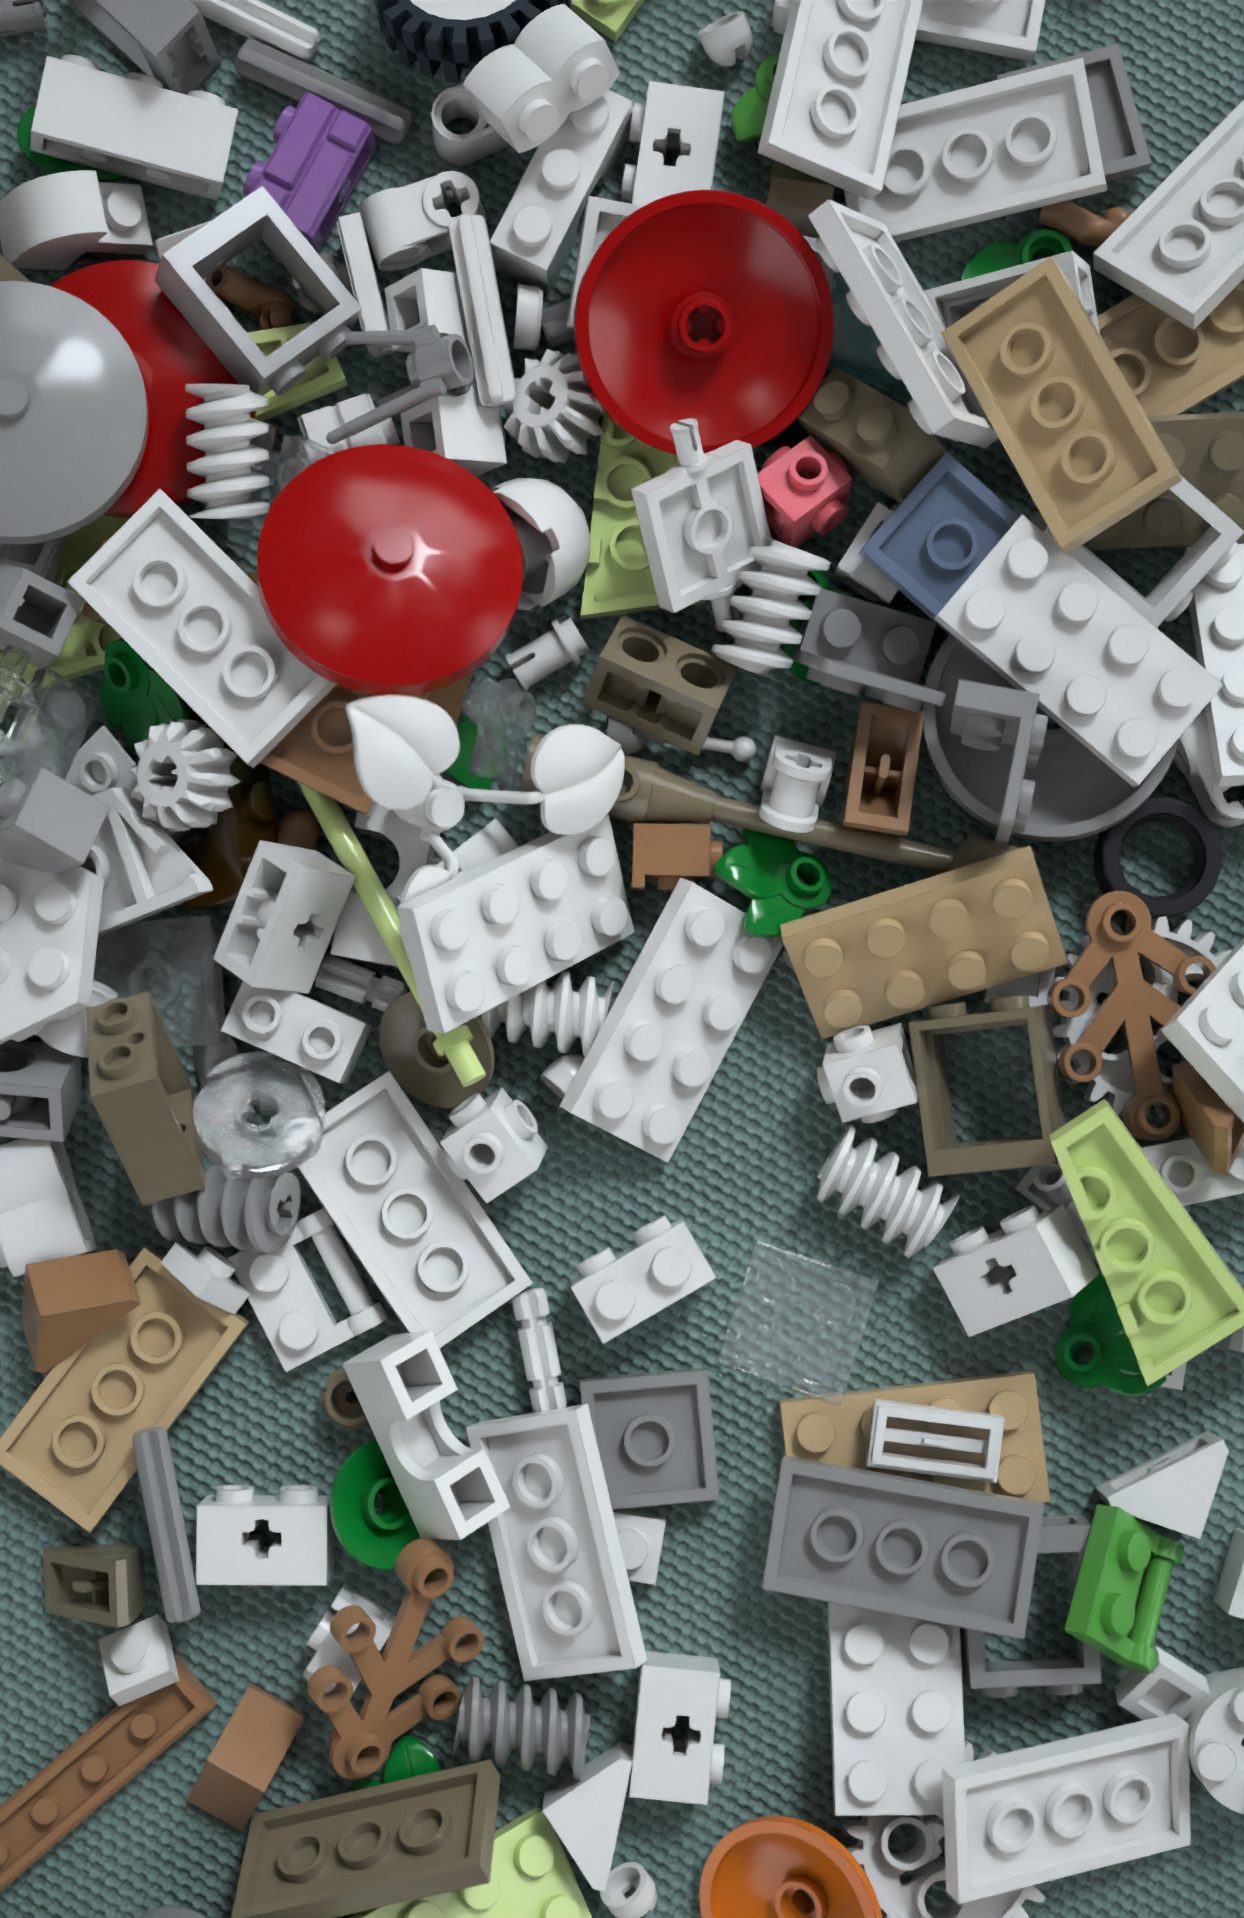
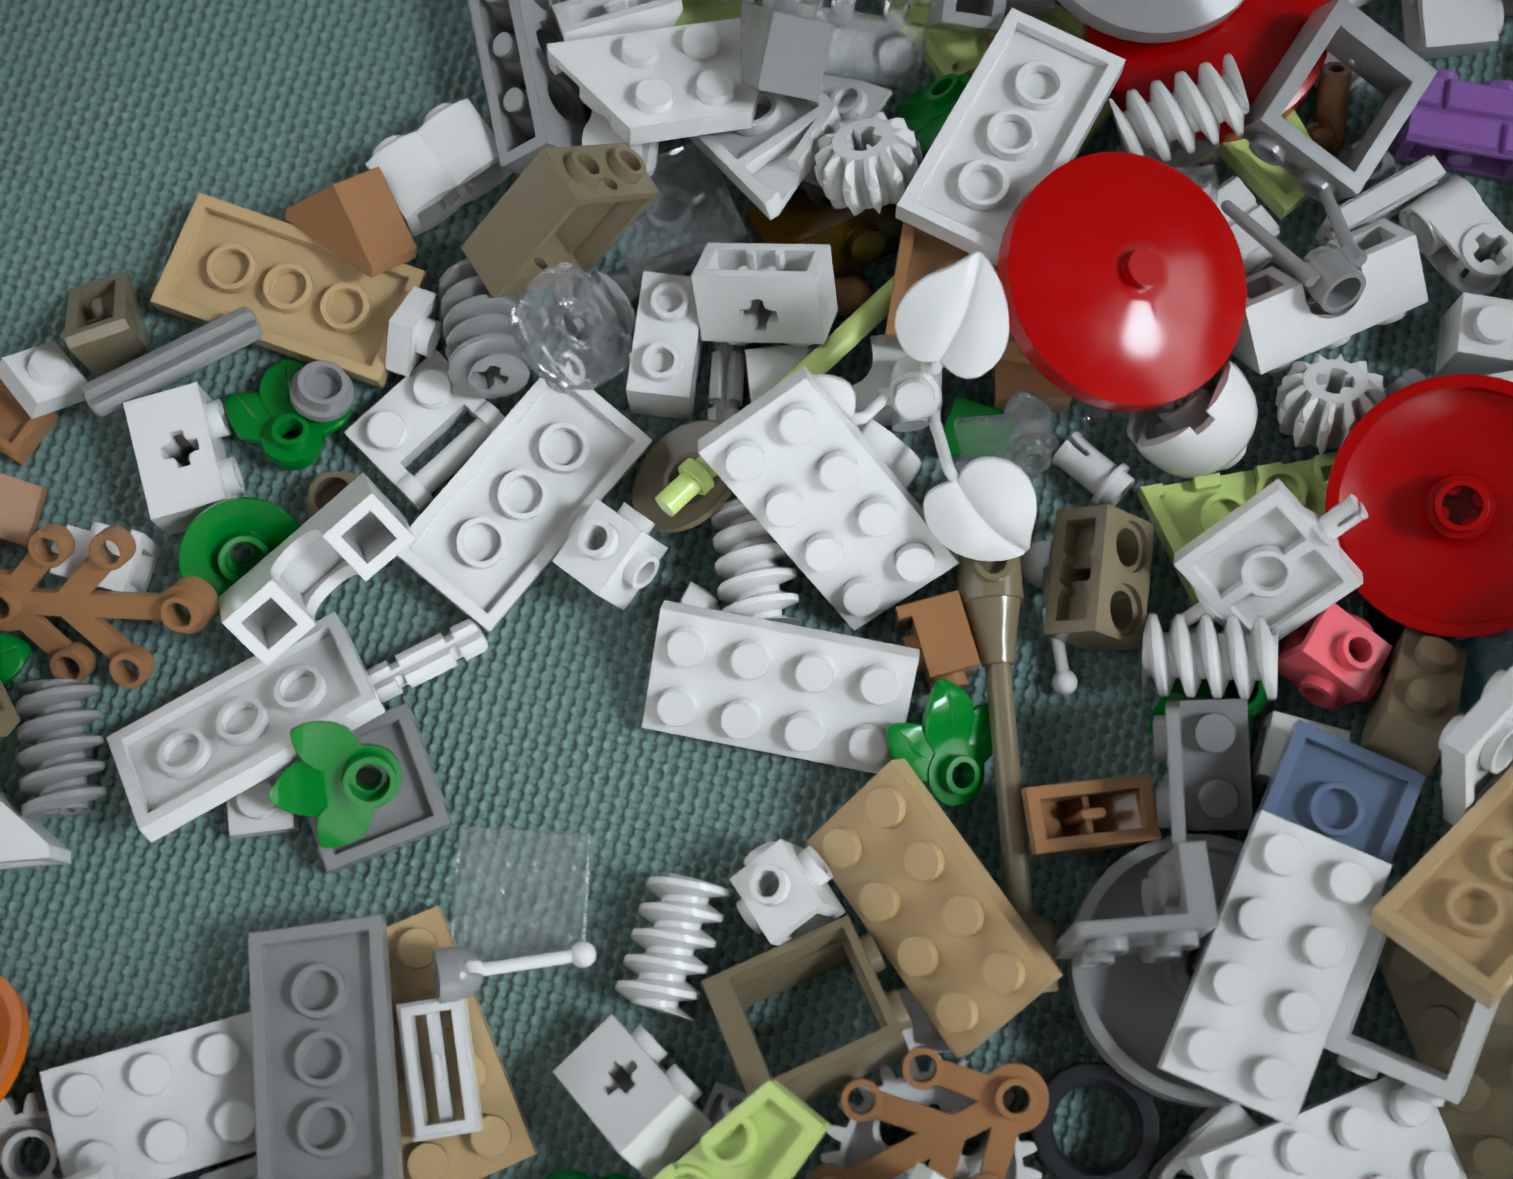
camera: 75 degrees right, 10 degrees down
(238, 1419) = (270, 417): none -> green plate
(240, 1383) = (321, 391): none -> light grey plate
(482, 310) = (1396, 305): white axle -> none
(527, 317) = (1403, 355): white tile -> none
(641, 1279) = (521, 733): white brick -> none
(641, 1477) = (326, 782): none -> green plate
(671, 1766) = (56, 890): white brick -> none
(795, 784) = (1047, 737): white piece -> none
(858, 1397) = (461, 972): none -> hinge

